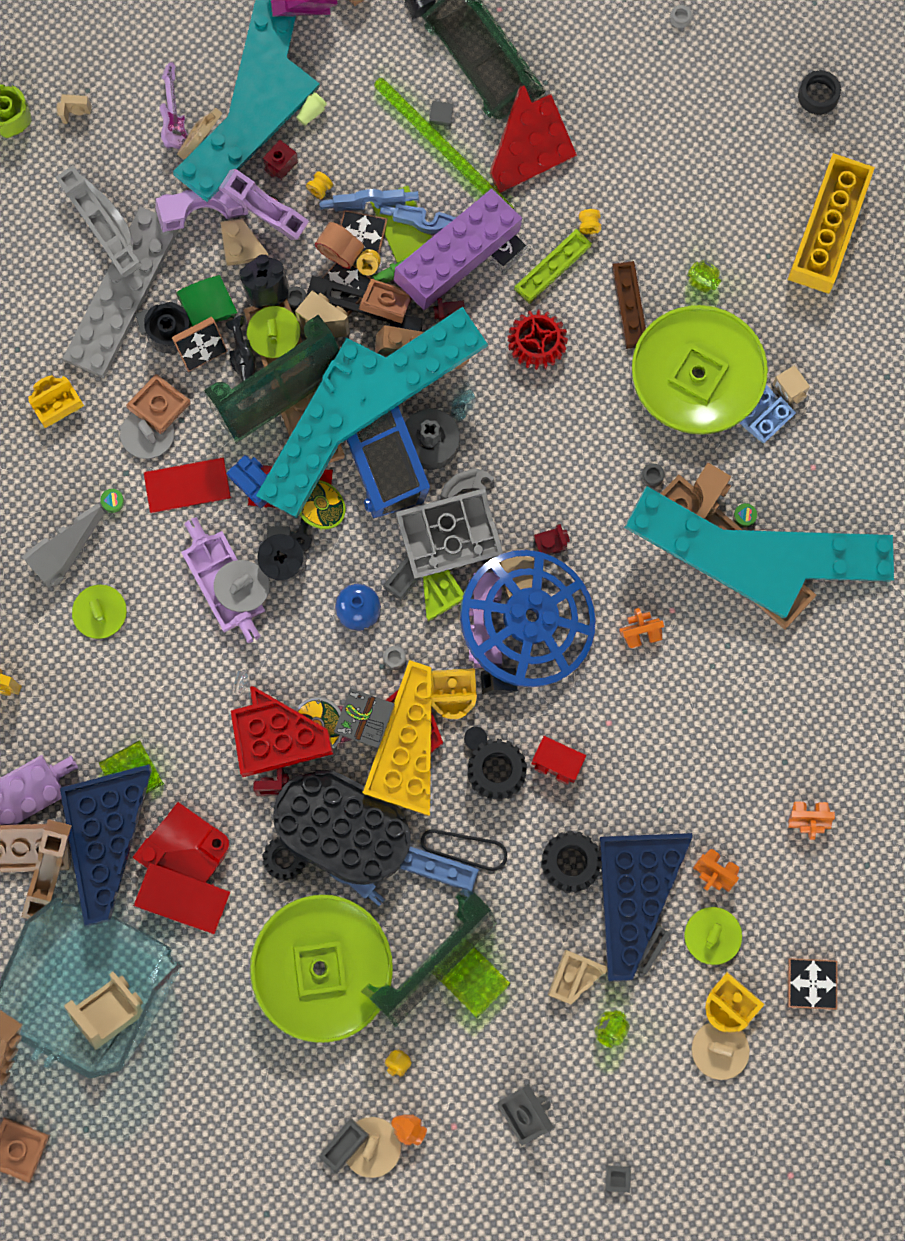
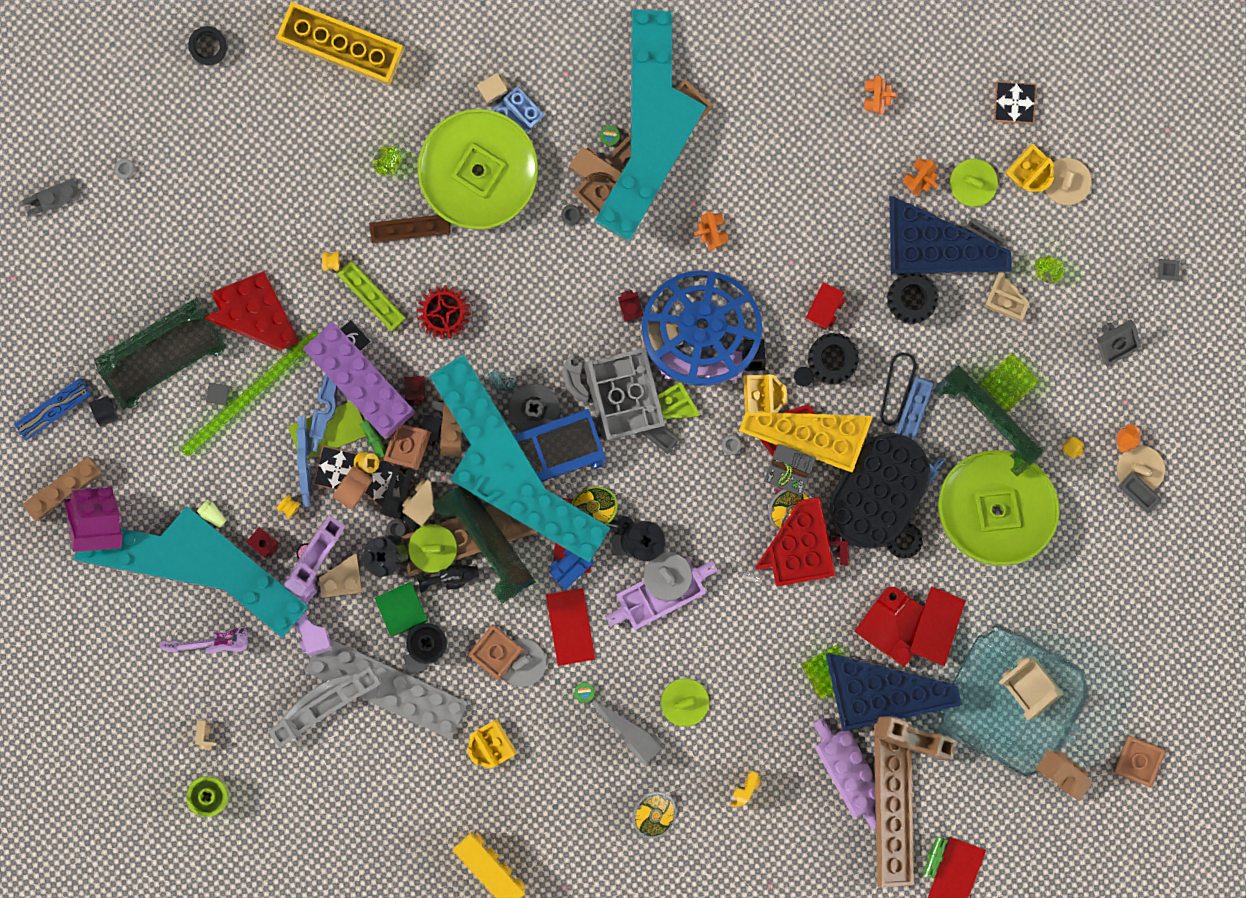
camera: 90 degrees left, 10 degrees up
(199, 133) = (237, 617): tan wing -> none
(199, 344) = (444, 614): tile -> none
(357, 607) = (685, 476): blue cylinder -> none

